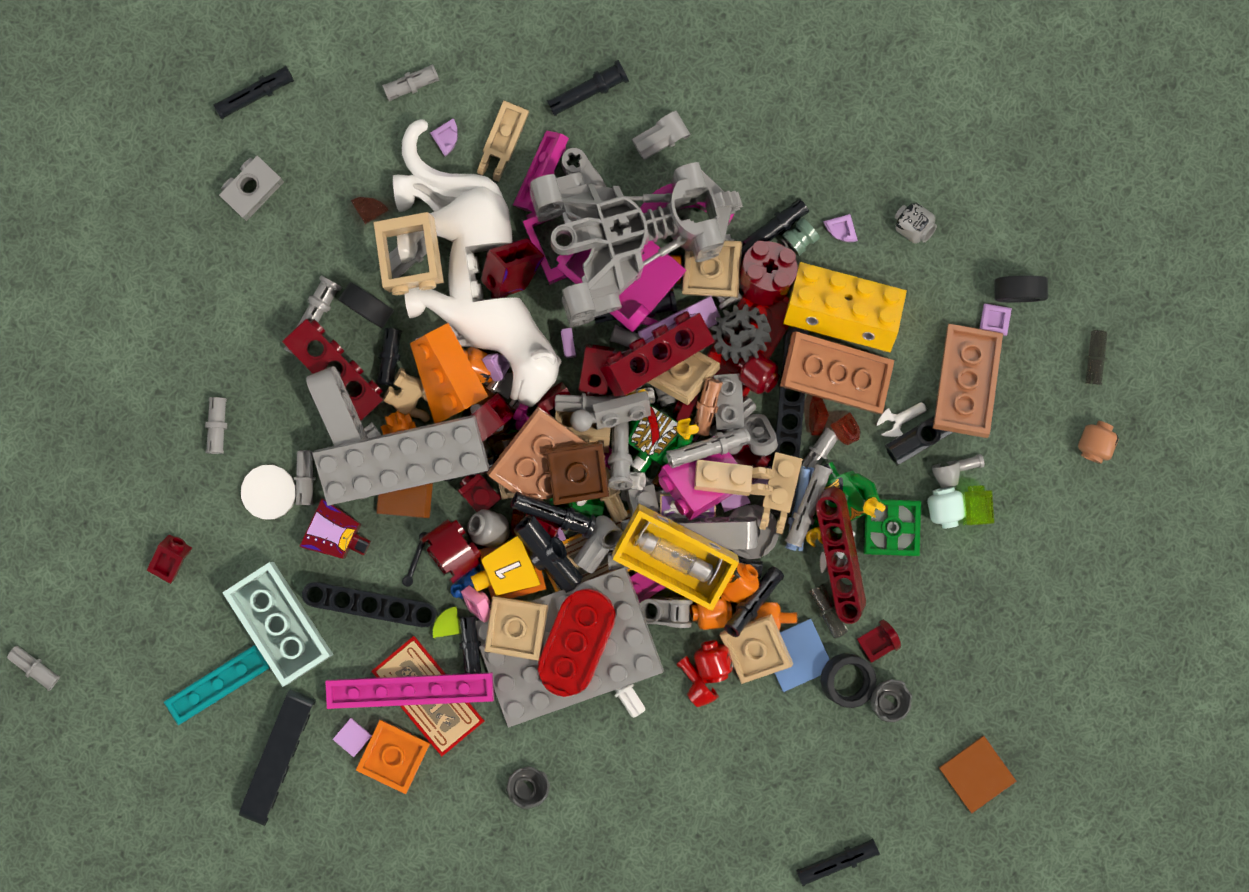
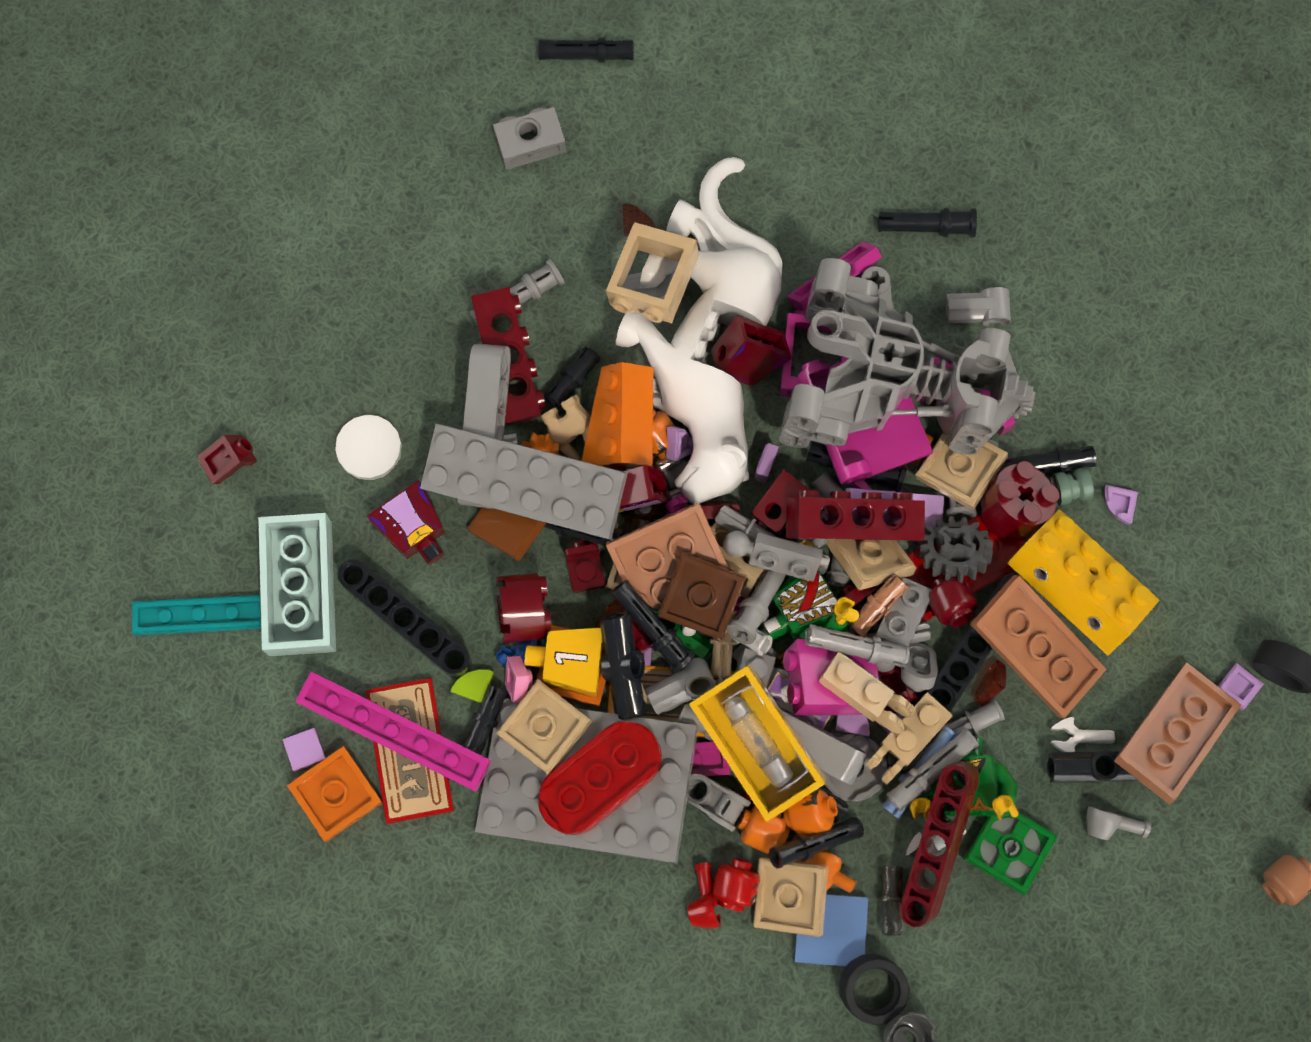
camera: 30 degrees right, 10 degrees down
(33, 667) = (22, 492): light grey axle -> none
(216, 425) = (355, 351): light grey pin -> none
(276, 757) = (211, 724): black beam -> none
(304, 478) = (413, 453): light grey axle -> none
(366, 305) = (578, 310): black tyre -> none
(408, 580) = (459, 617): black hinge -> none
(410, 82) = (749, 122): light grey pin -> none
(446, 136) = (755, 193): lavender tile -> none
(488, 528) = (574, 607): light grey head -> none
(503, 137) = (814, 224): tan hinge -> none
(521, 794) = (447, 912): dark grey hair -> none
(630, 700) = (622, 875): white axle -> none
(846, 429) = (1016, 714): clear red tile -> none
(879, 641) = (931, 965): dark red tile -> none
(915, 223) = (1204, 537): light grey head -> none
(946, 507) = (1083, 858): light aqua head -> none
(978, 506) = (1117, 876): clear neon green brick -> none

